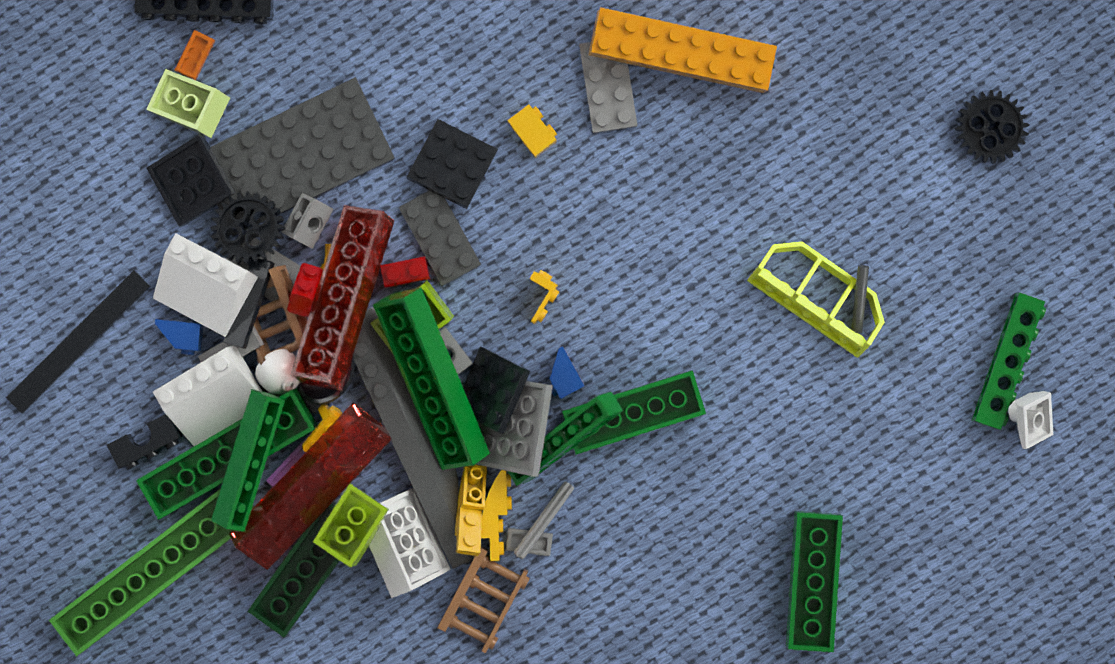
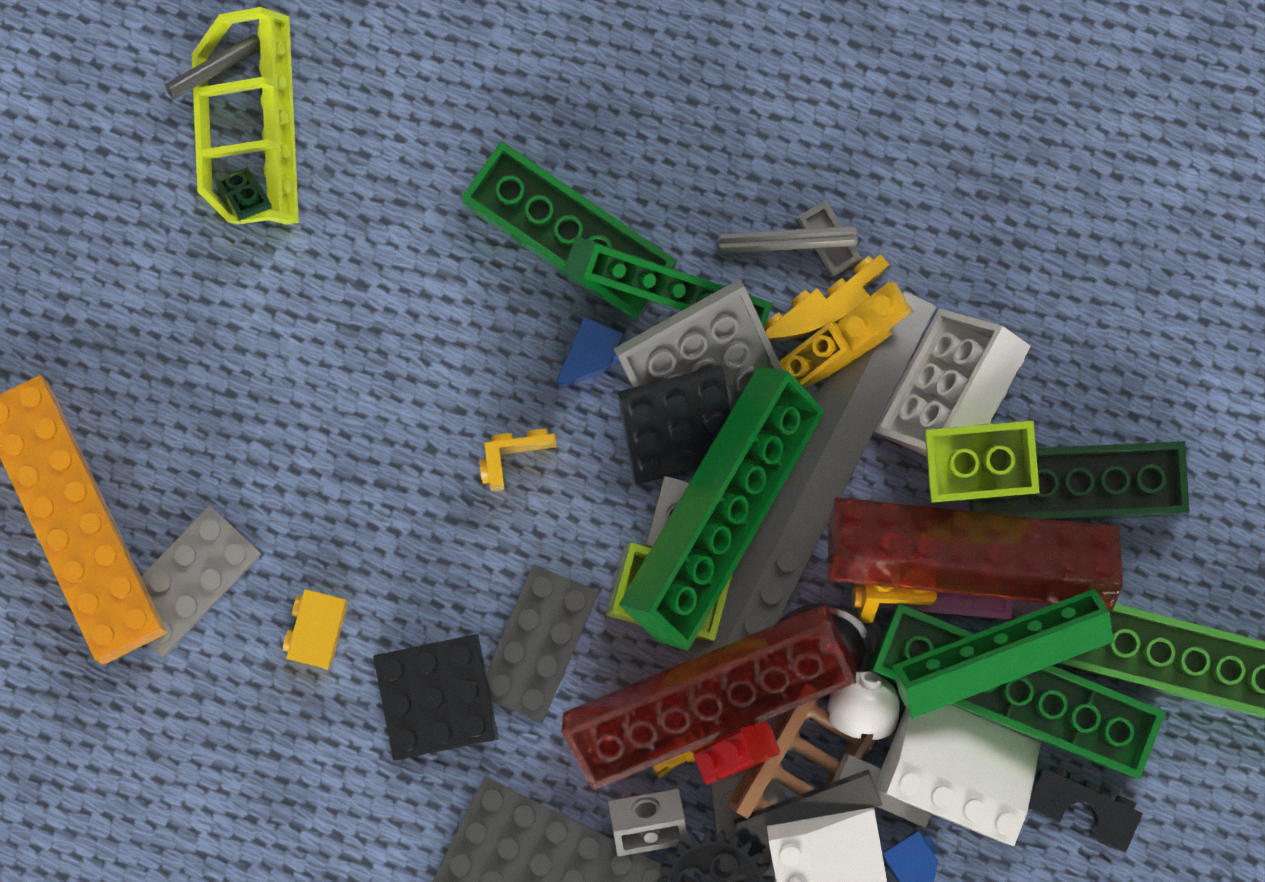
camera: 130 degrees left, 5 degrees down
(405, 272) = (616, 649): red brick -> none
(461, 600) = (966, 265): medium nougat fence -> none
(781, 262) = (242, 194): none -> dark green slope

